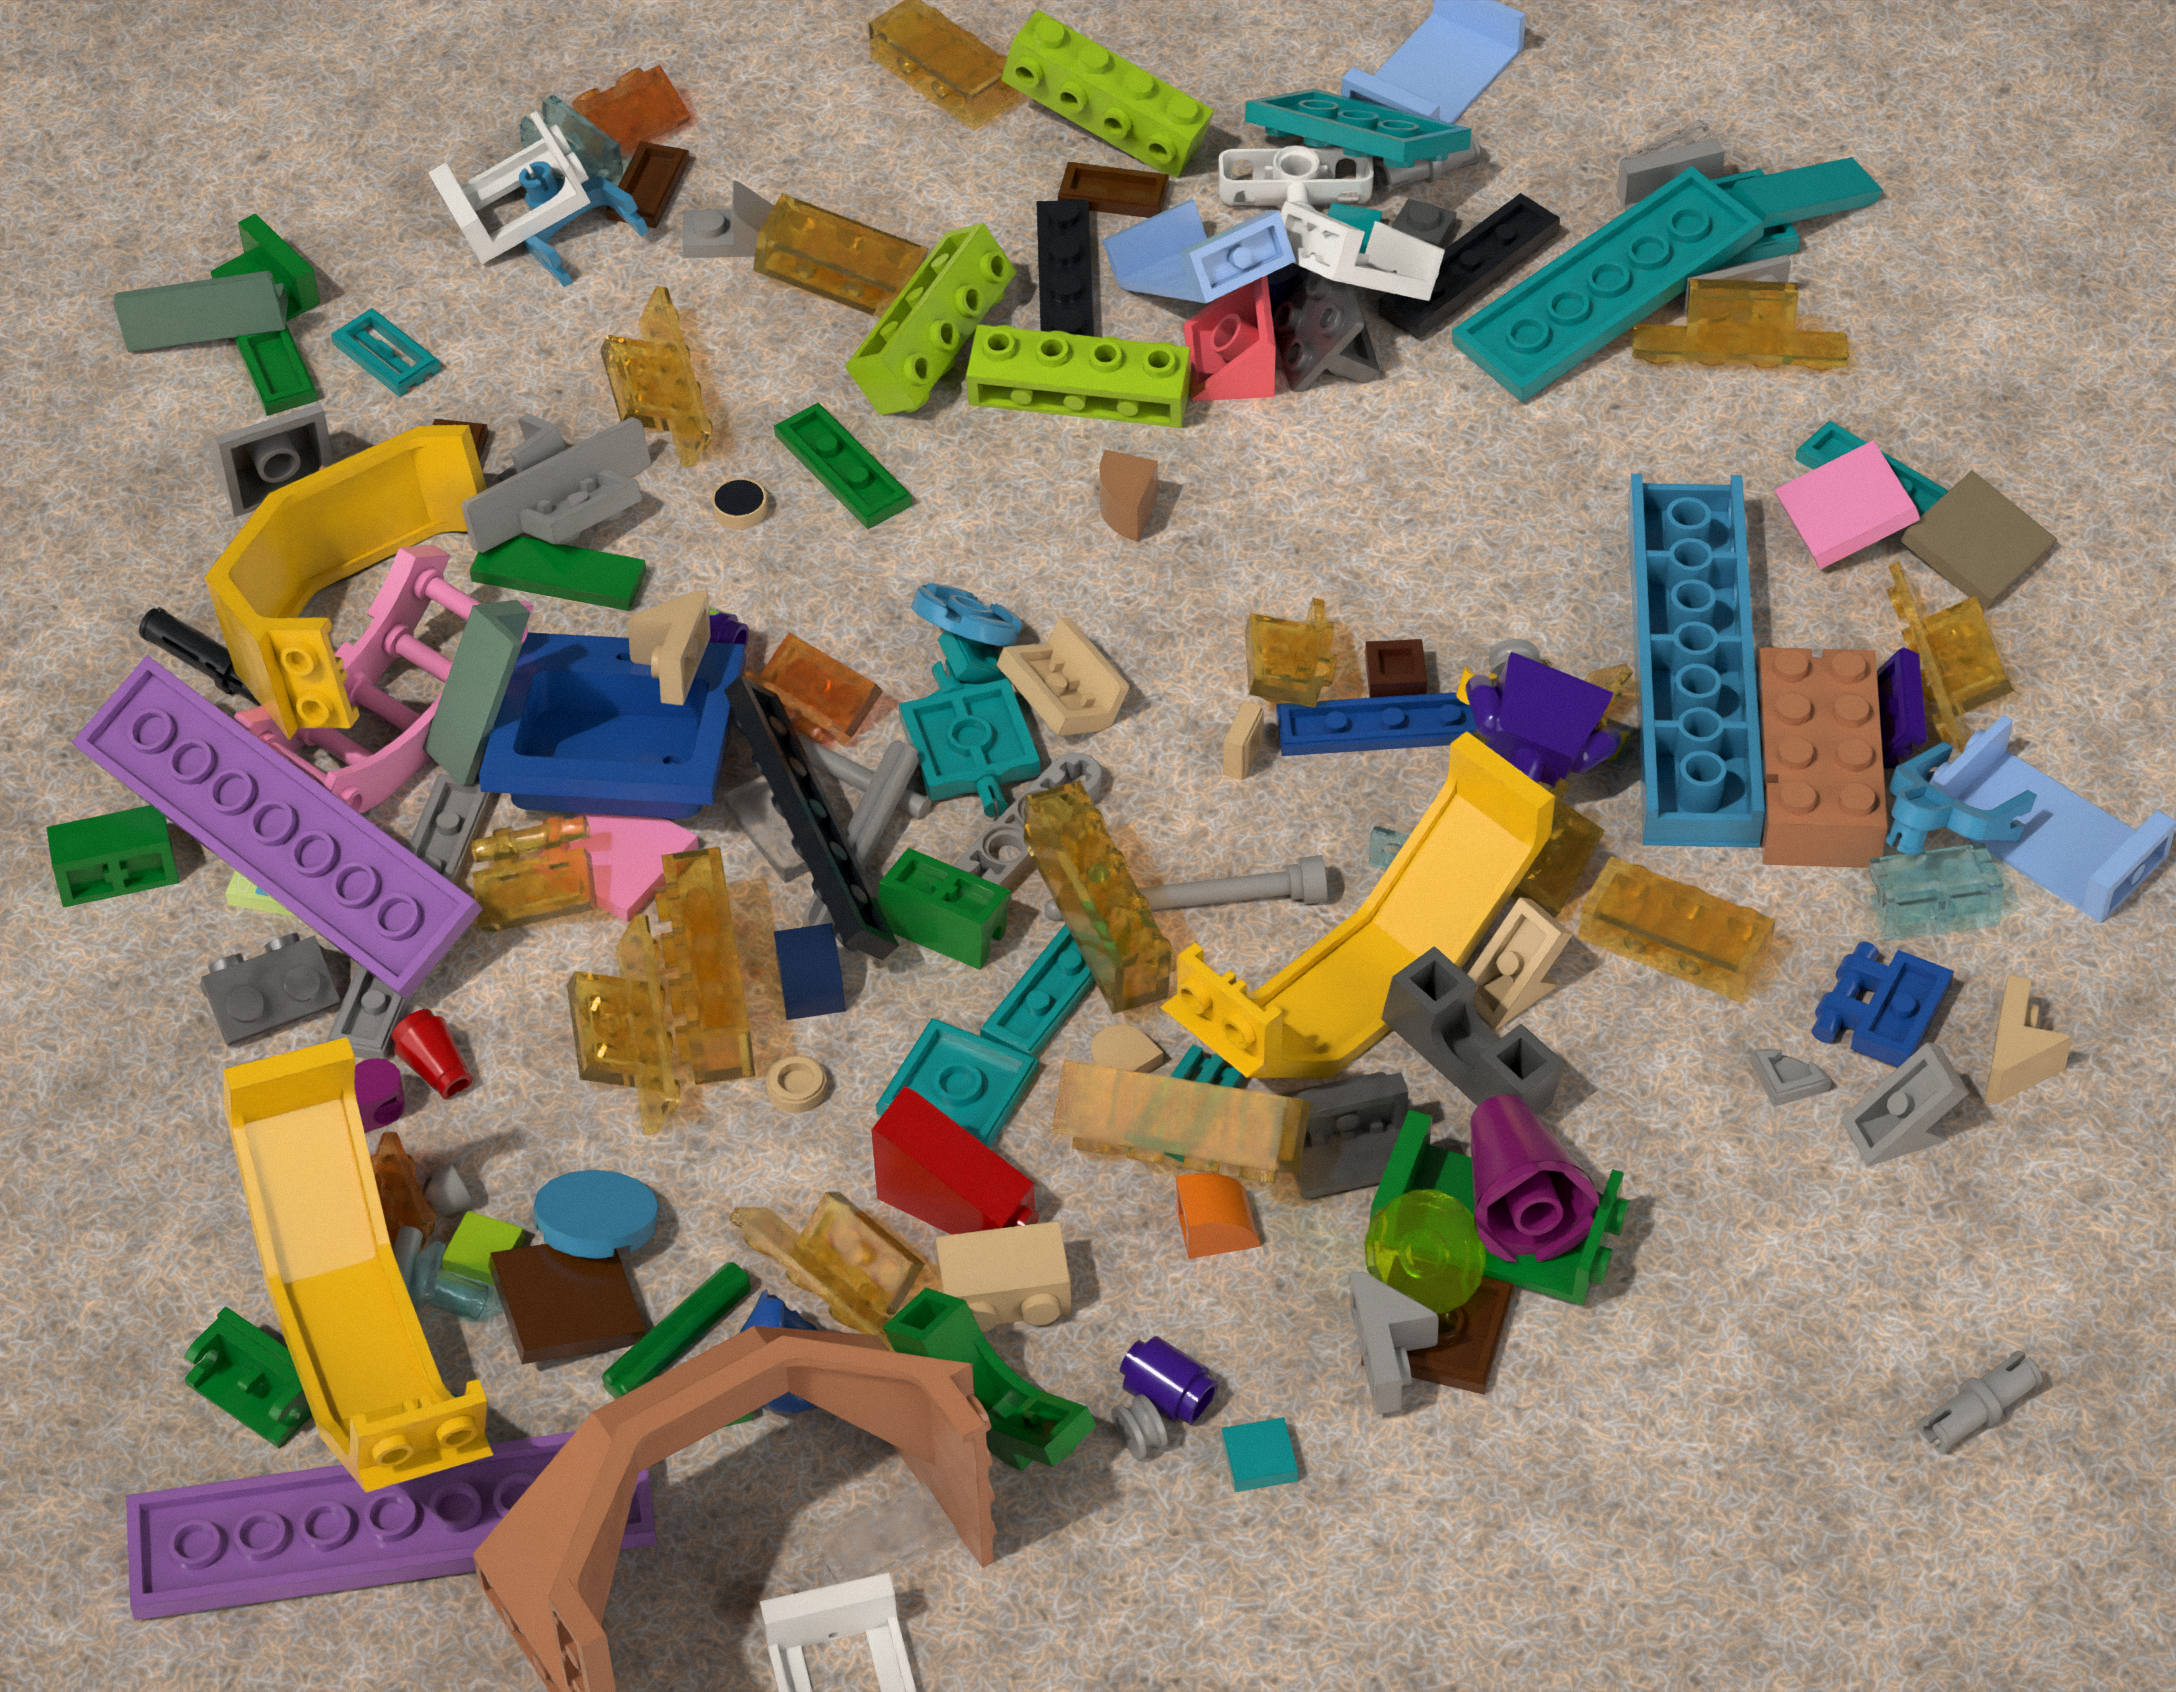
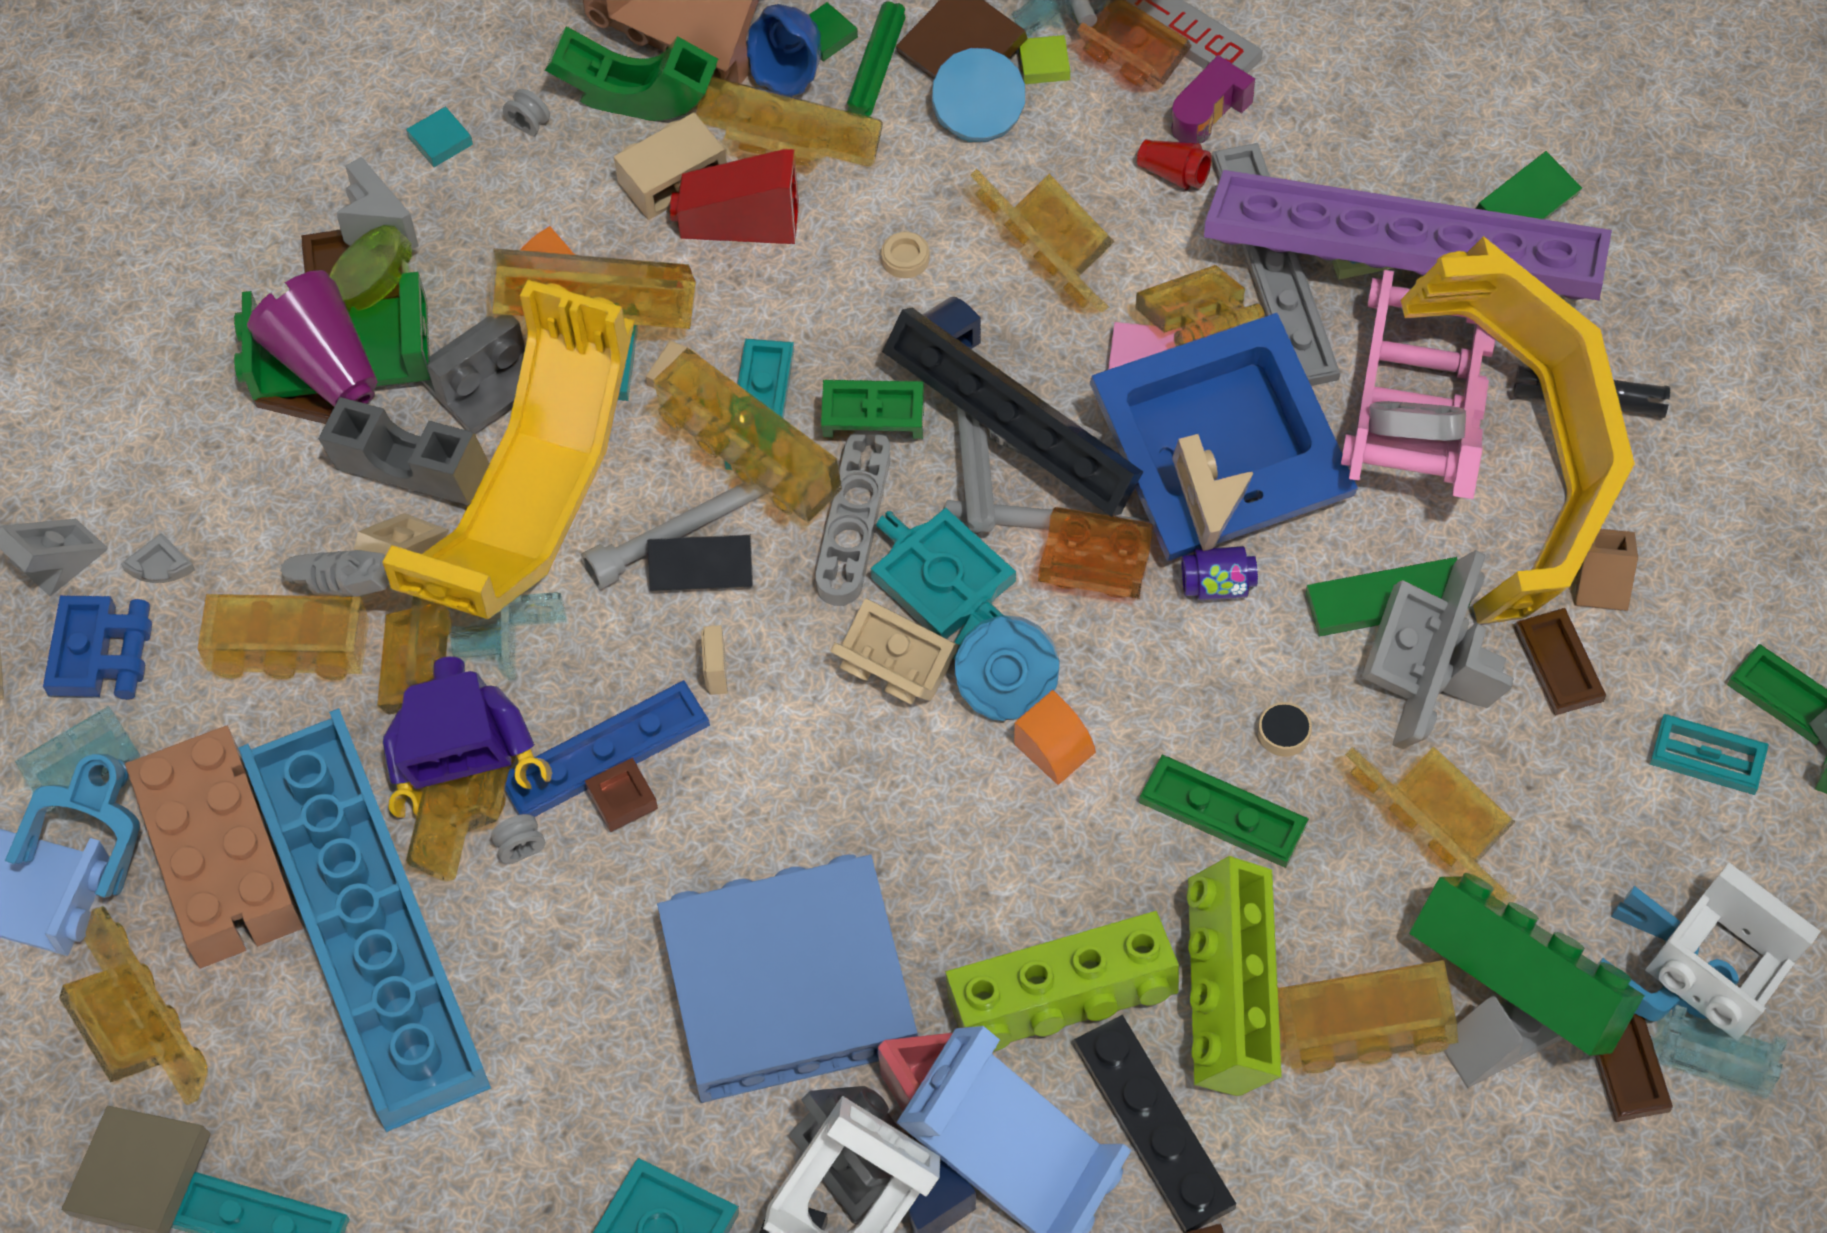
camera: 155 degrees right, 10 degrees up
(269, 456) = (1702, 571): light grey slope -> none
(269, 988) = (1334, 154): flat silver bracket -> none
(418, 638) = (1417, 420): none -> light grey beam
(446, 1191) = (1099, 74): light grey hinge -> none
(476, 687) = (1342, 387): sand green panel -> none
(636, 108) = (1711, 1133): clear orange bracket -> none
(689, 225) = (1527, 964): none -> green brick
(707, 964) = (1017, 284): clear yellow brick -> none
(962, 564) = (1053, 737): none -> orange brick
(964, 1078) = (787, 299): teal tile -> none
(1127, 492) = (948, 870): medium nougat brick -> none
(1169, 1379) = (522, 148): dark purple brick -> none
(1206, 841) = (700, 562): none -> black tile
(1290, 657) = (715, 752): clear yellow bracket -> none
(1317, 468) = (785, 976): none -> medium blue panel
(1596, 931) = (337, 573): none -> light grey hinge
(1847, 504) = (271, 1145): bright pink tile -> none
(1900, 706) = (159, 933): dark purple tile -> none

